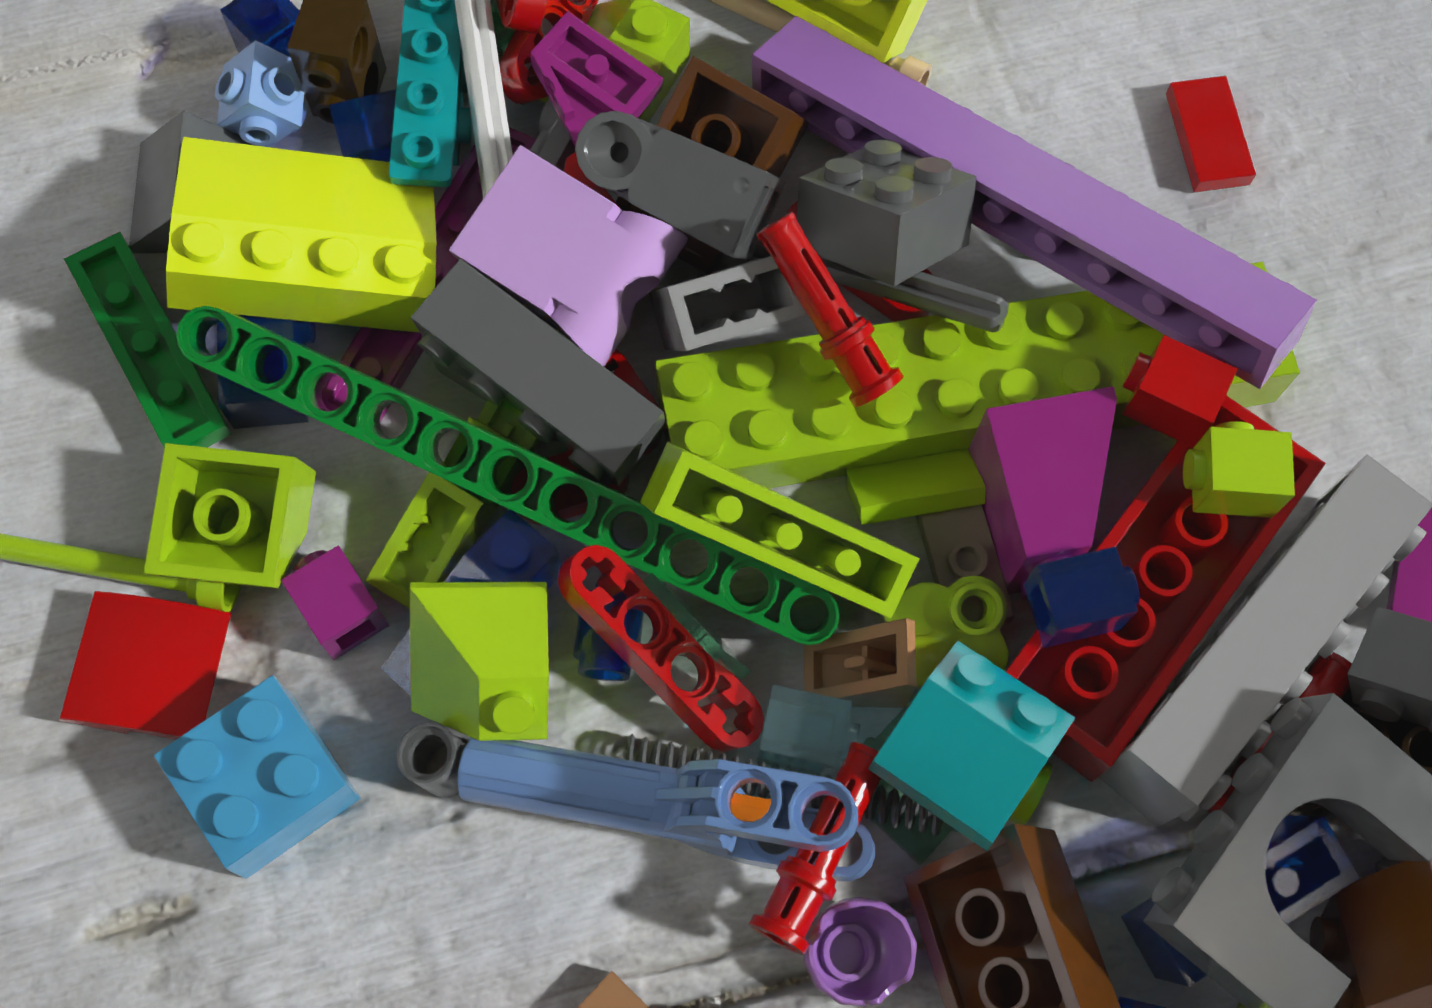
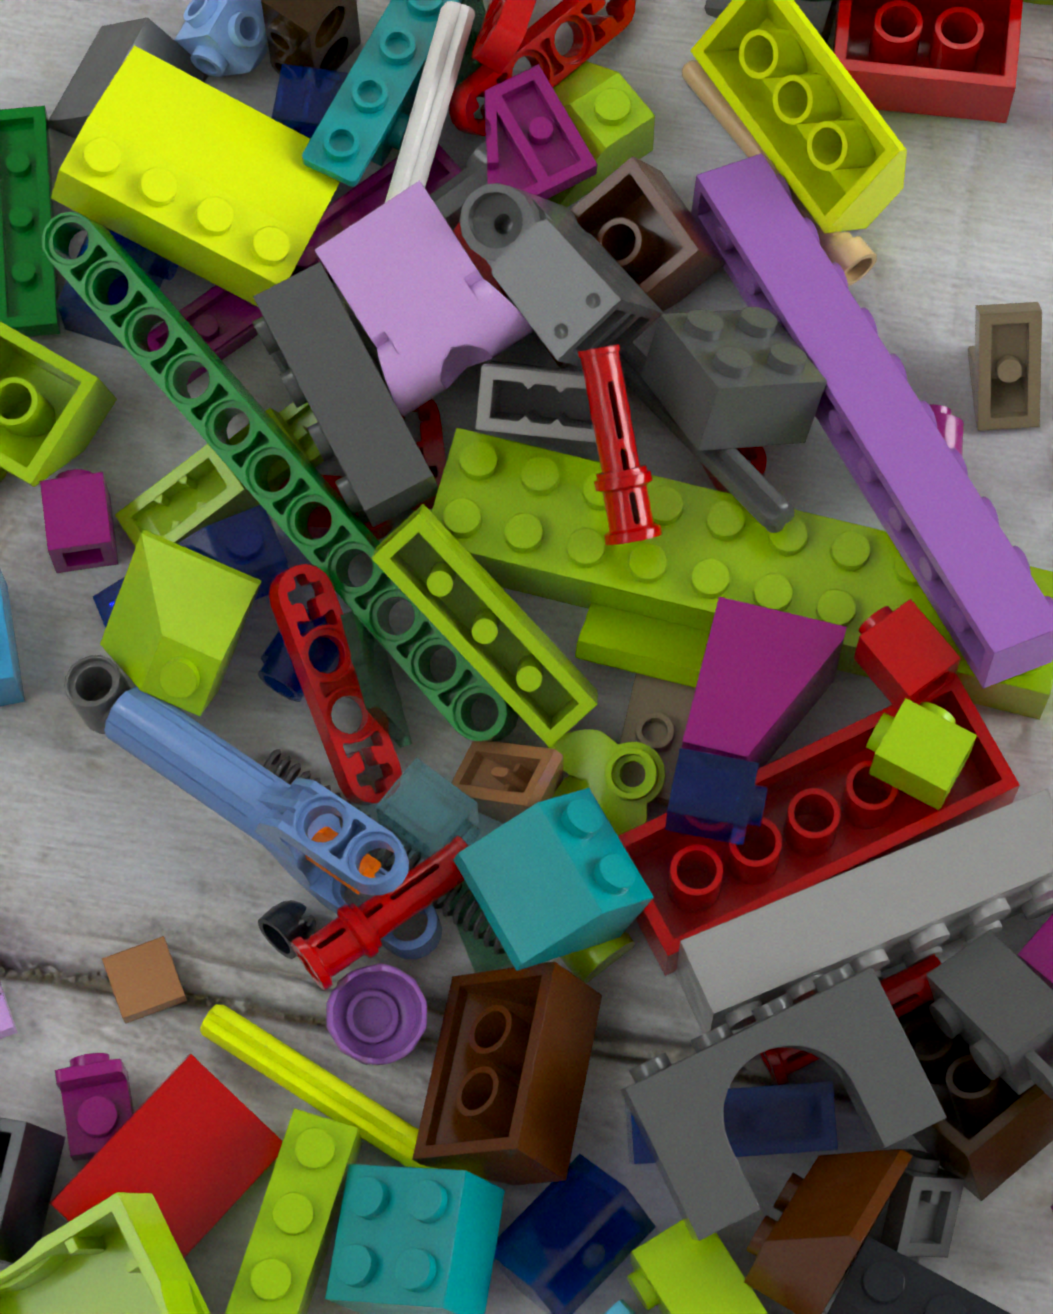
camera: 30 degrees right, 0 degrees up
(726, 903) = (284, 924): none -> black hinge
(1092, 111) = (1006, 365): none -> dark tan slope

